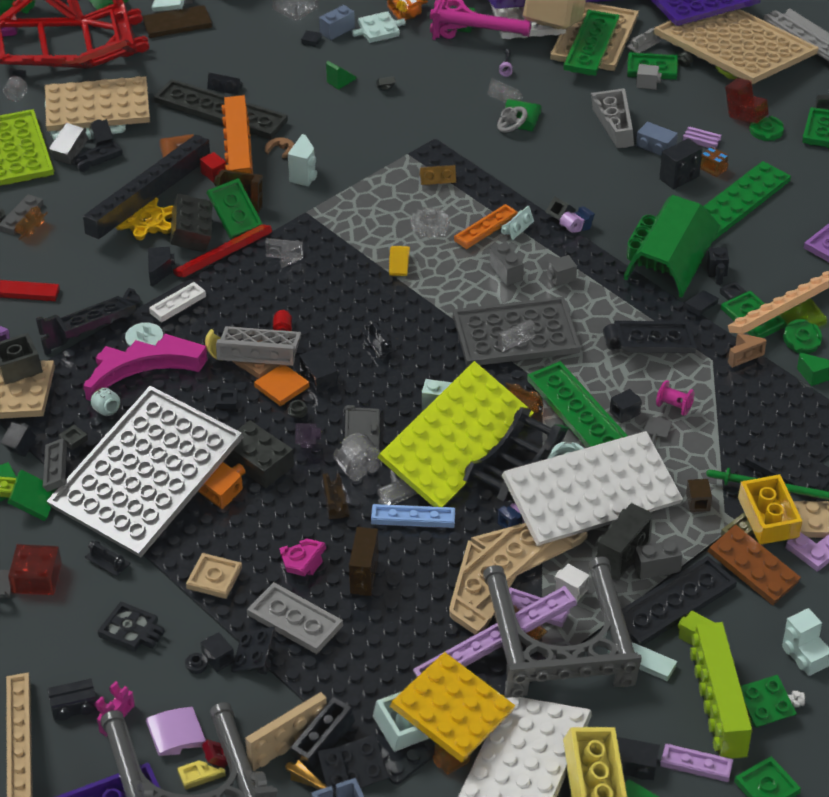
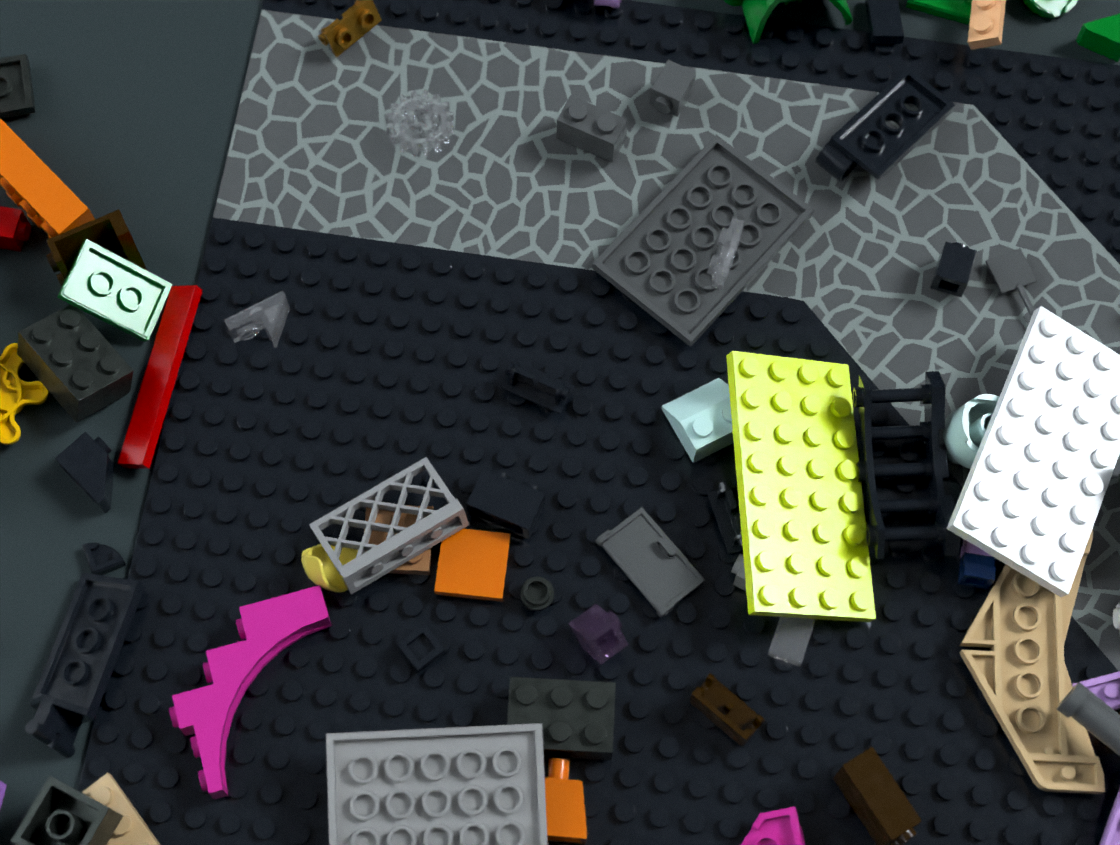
camera: 40 degrees left, 25 degrees up
(105, 401) = (258, 790): light aqua head -> none
(145, 333) = (193, 620): light aqua piece -> none
(177, 302) = (190, 525): white plate -> none
(282, 142) = (61, 106): medium nougat head -> none
(282, 321) = (378, 455): red brick -> none
(302, 162) = (139, 133): light aqua slope -> none
(357, 456) = (705, 623): clear brick -> none
(399, 260) = (434, 220): yellow slope -> none
(413, 516) = (847, 658): light blue tile -> none
(485, 226) = (496, 75): orange tile -> none
(518, 223) = (537, 29): light aqua hinge -> none
(530, 399) = (826, 348): clear orange hinge -> none
(575, 405) = (906, 320): green plate -> none
(674, 397) = (1005, 212): dark pink hose -> none
(746, 349) = (1013, 60): medium nougat slope -> none

